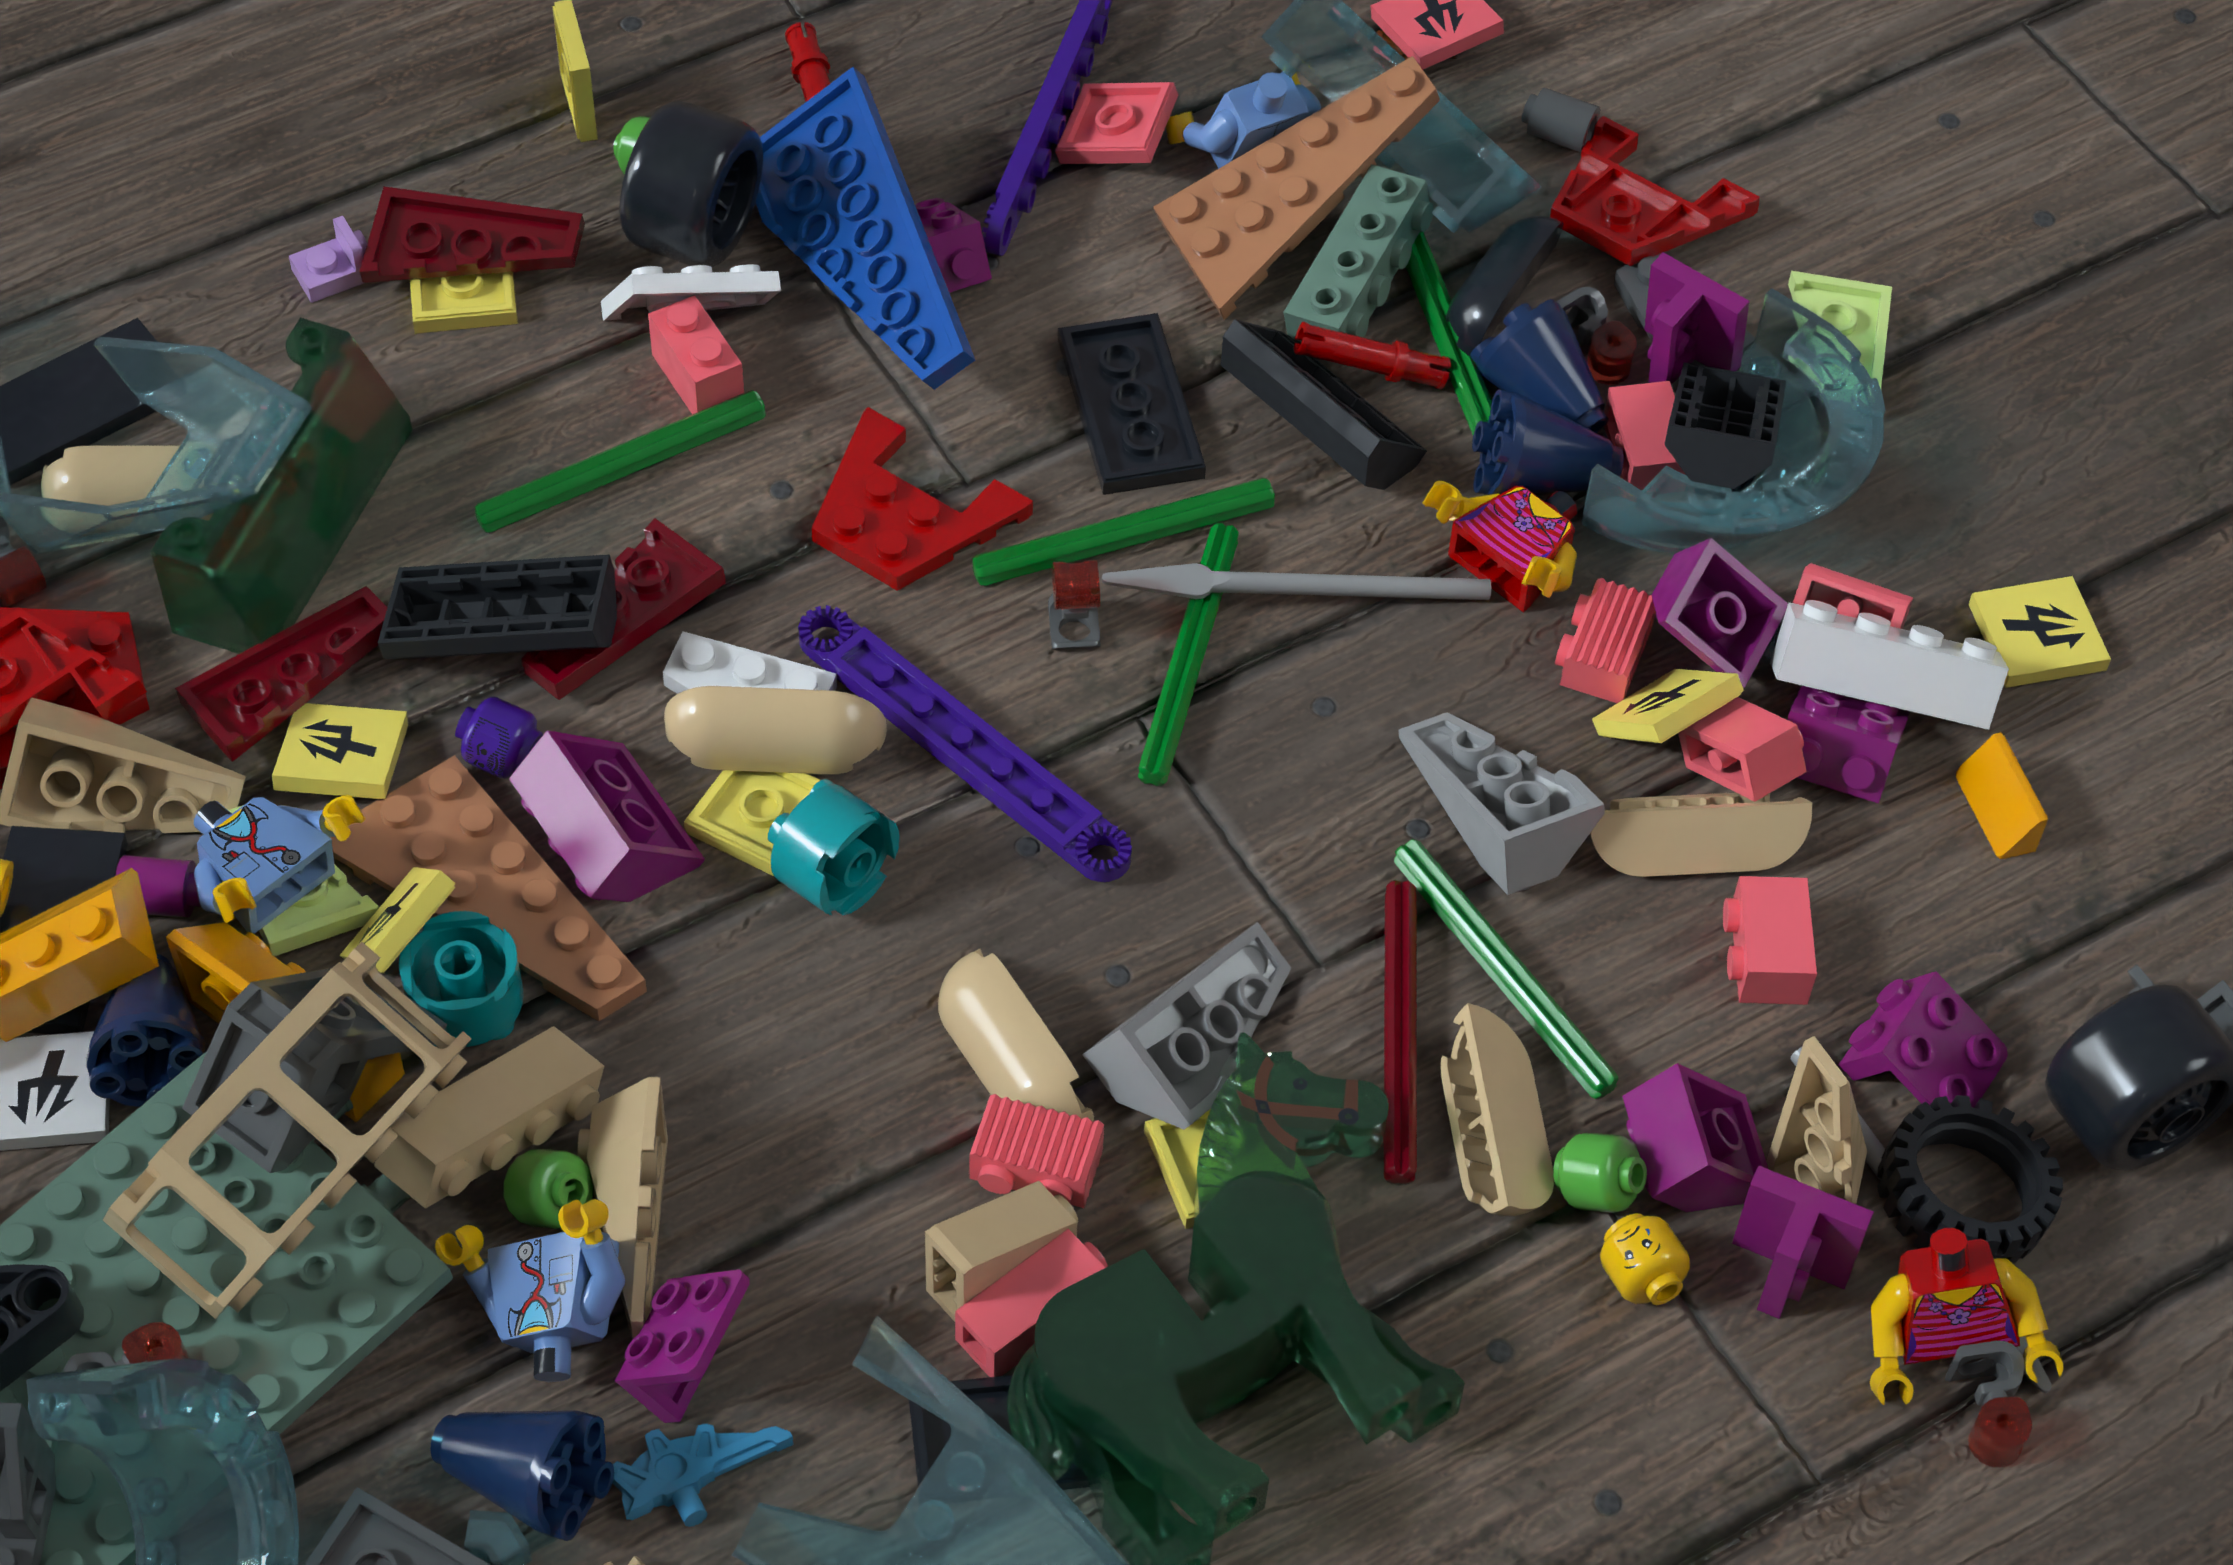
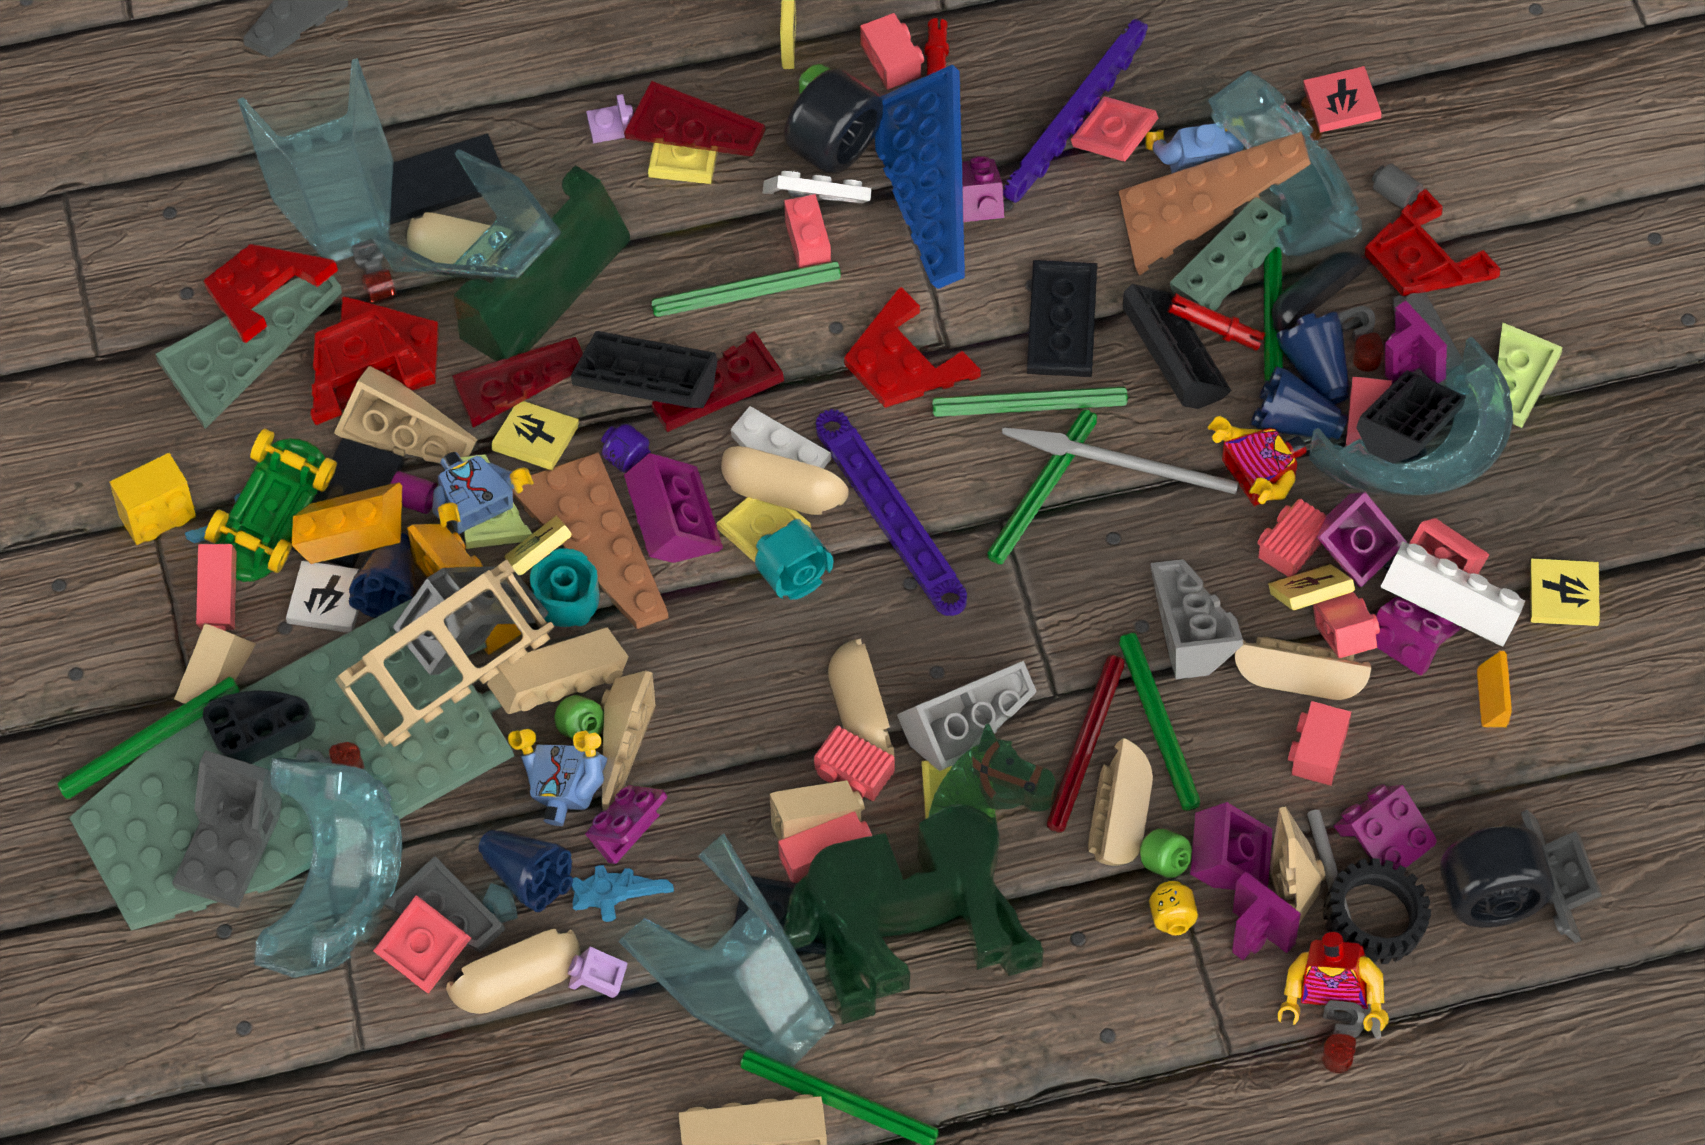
camera: 20 degrees right, 5 degrees up
(741, 79) = (891, 51): none -> coral brick
(1074, 600) = (981, 437): leg -> none

